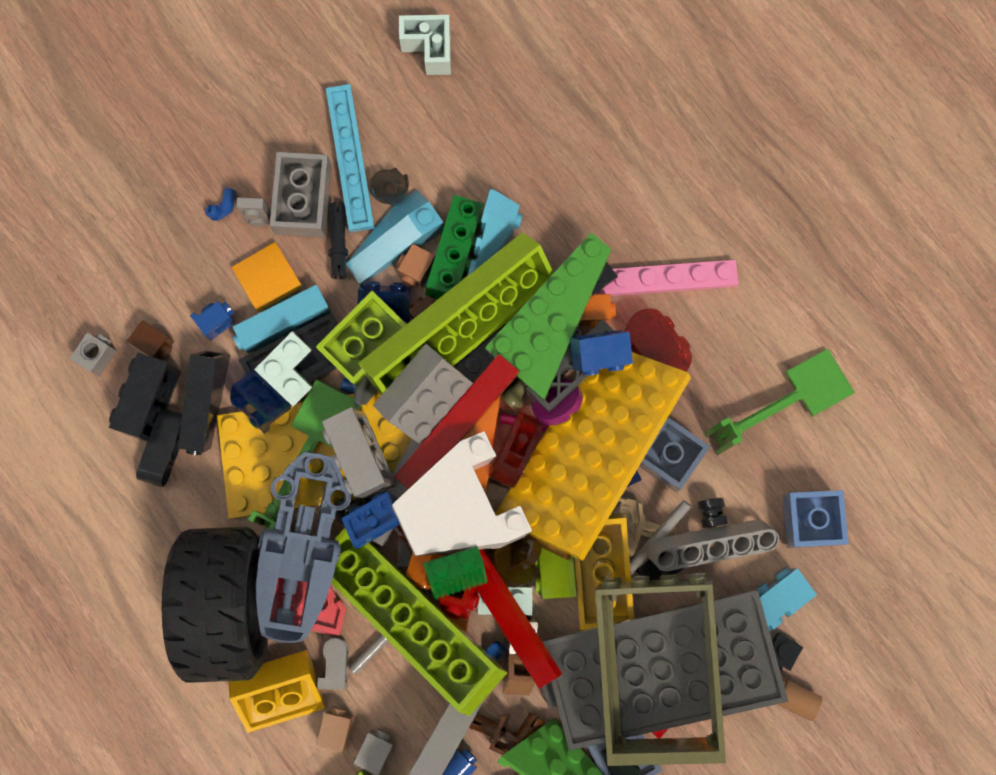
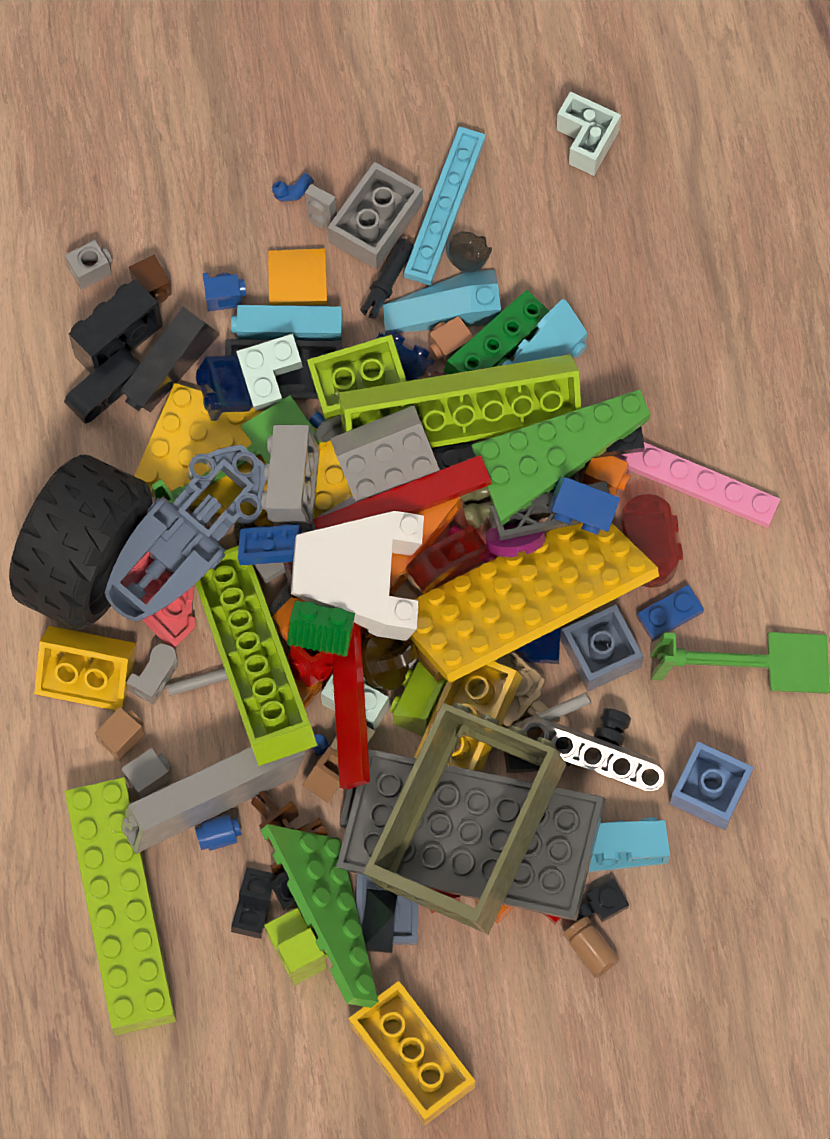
camera: 30 degrees right, 10 degrees down
(702, 394) = (670, 612): none -> blue plate

